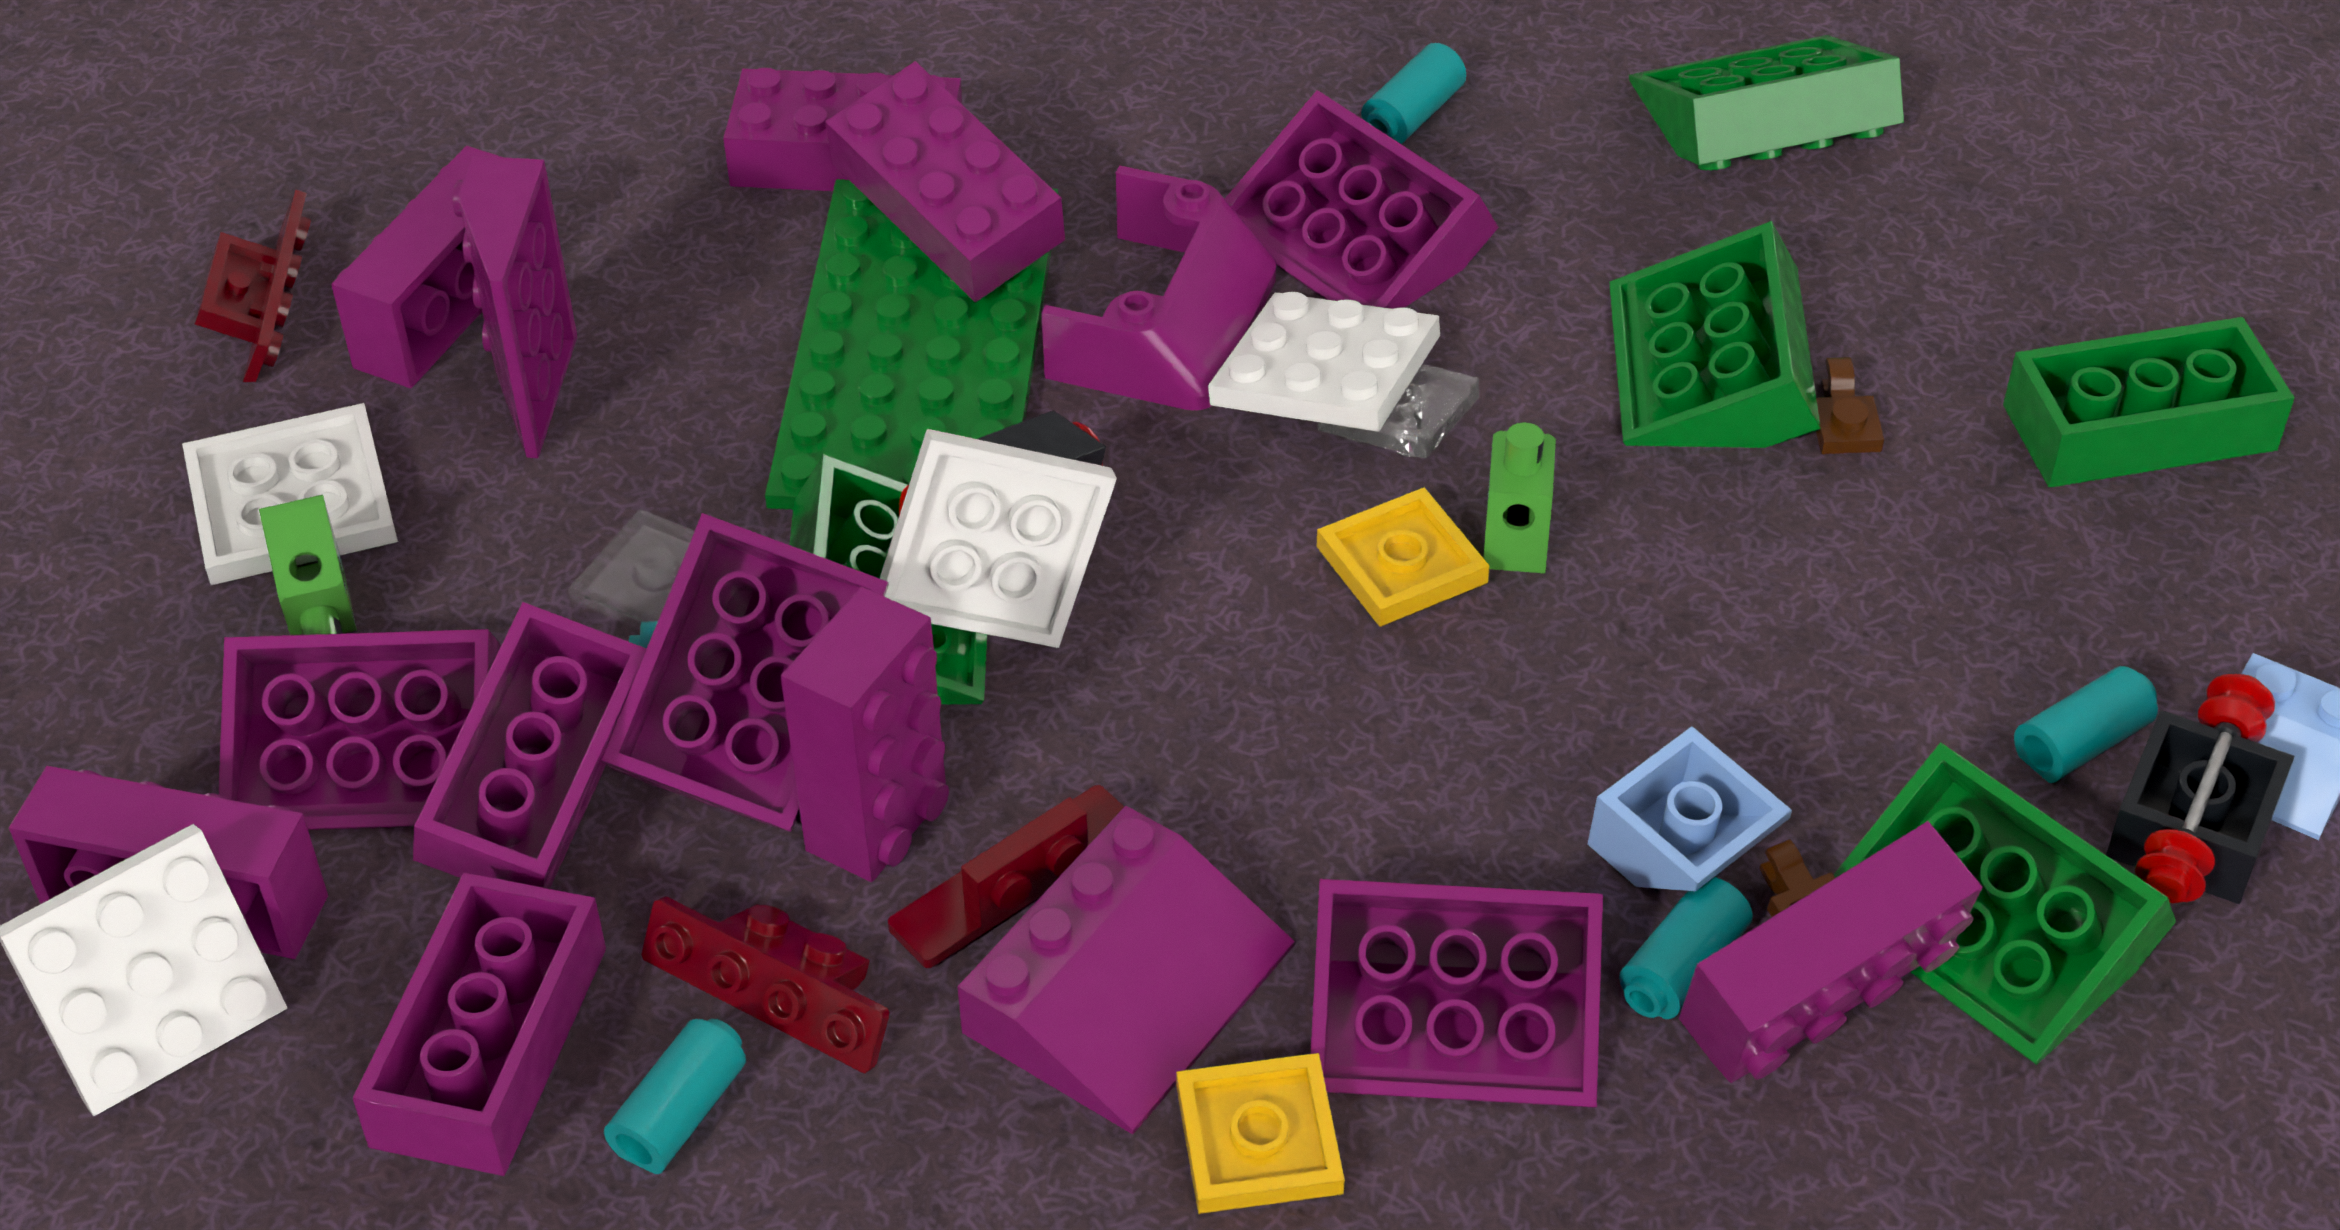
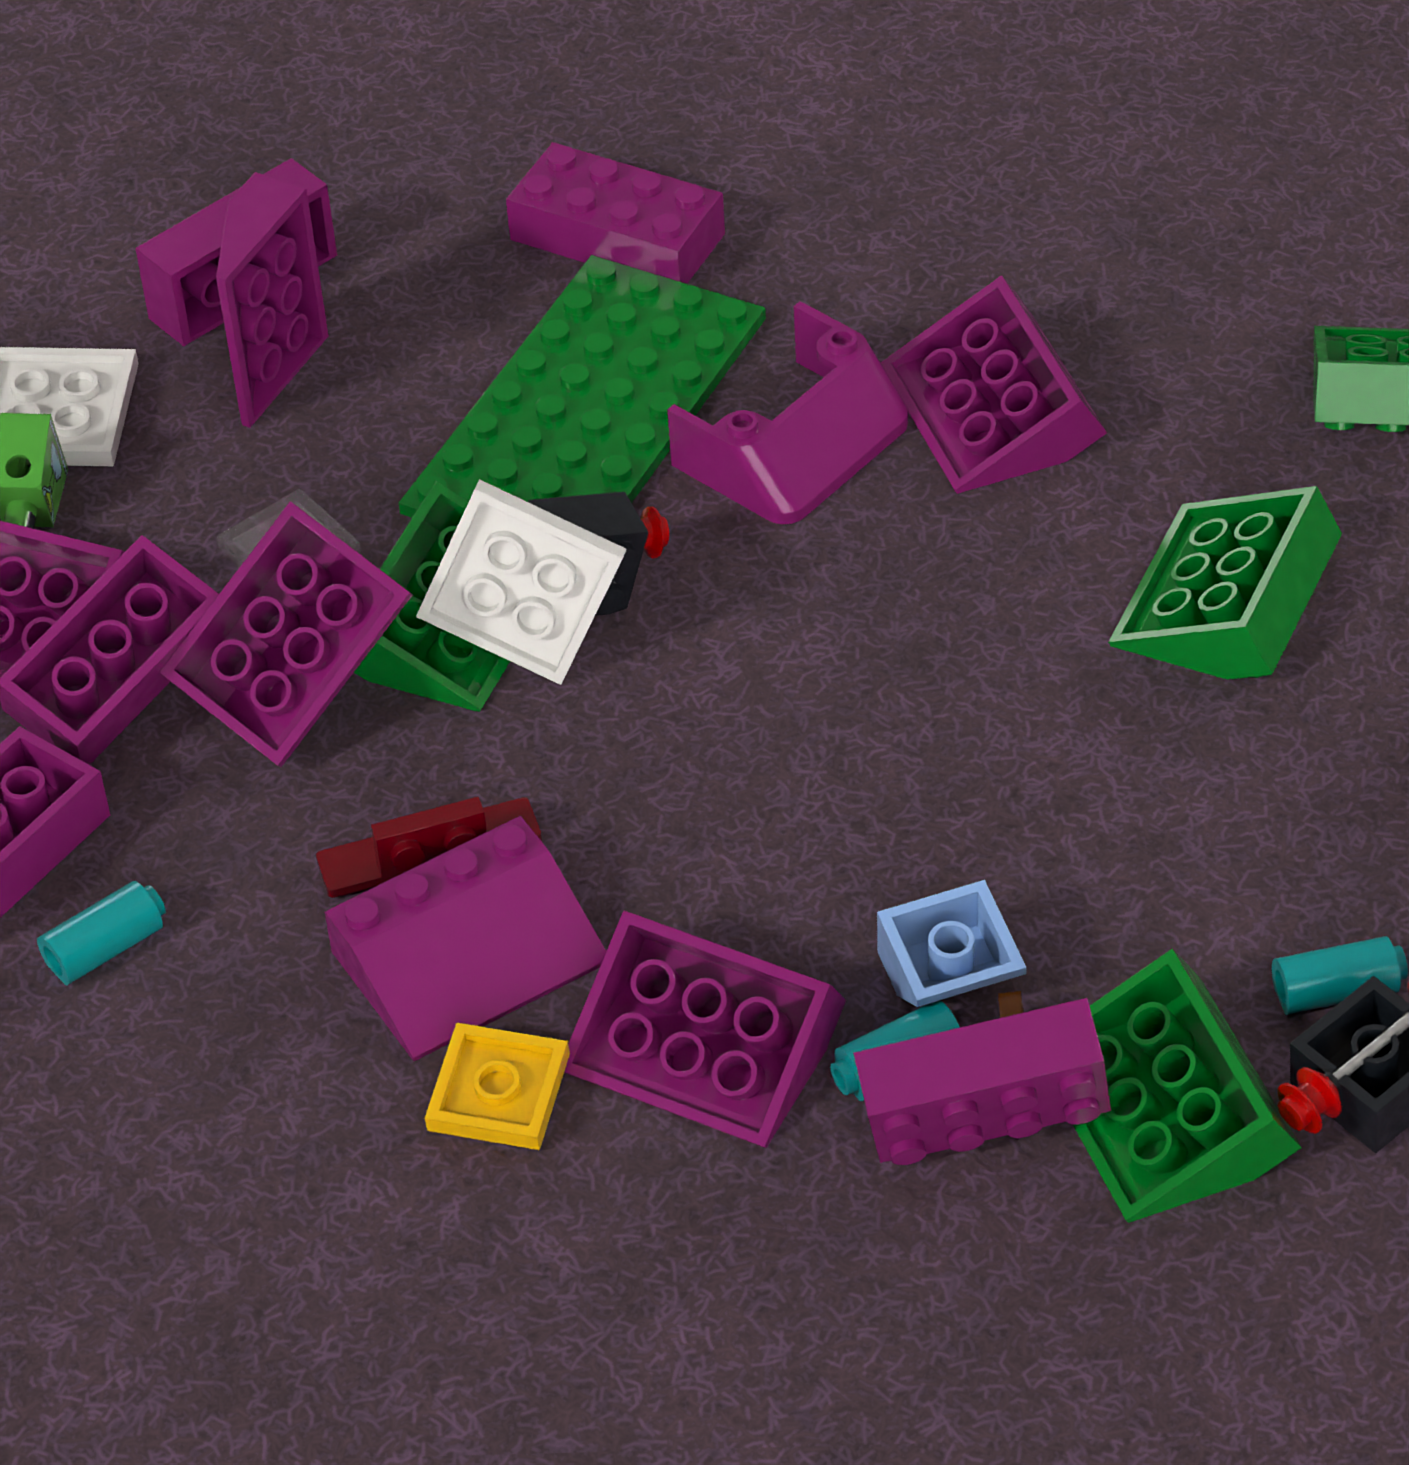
camera: 25 degrees right, 0 degrees up
(247, 286) = (95, 232): dark red bracket -> none
(774, 973) = (216, 866): dark red bracket -> none
(866, 734) = (341, 705): magenta brick -> none
(946, 181) = (652, 279): magenta brick -> none
(1325, 361) = (894, 509): white plate -> none
(1402, 556) = (865, 686): yellow plate -> none
(1415, 92) = (1107, 298): teal brick -> none
(1423, 414) = (935, 570): clear plate -> none
(1520, 475) = (978, 647): bright green torso -> none
(1846, 420) = (1308, 674): reddish brown plate -> none

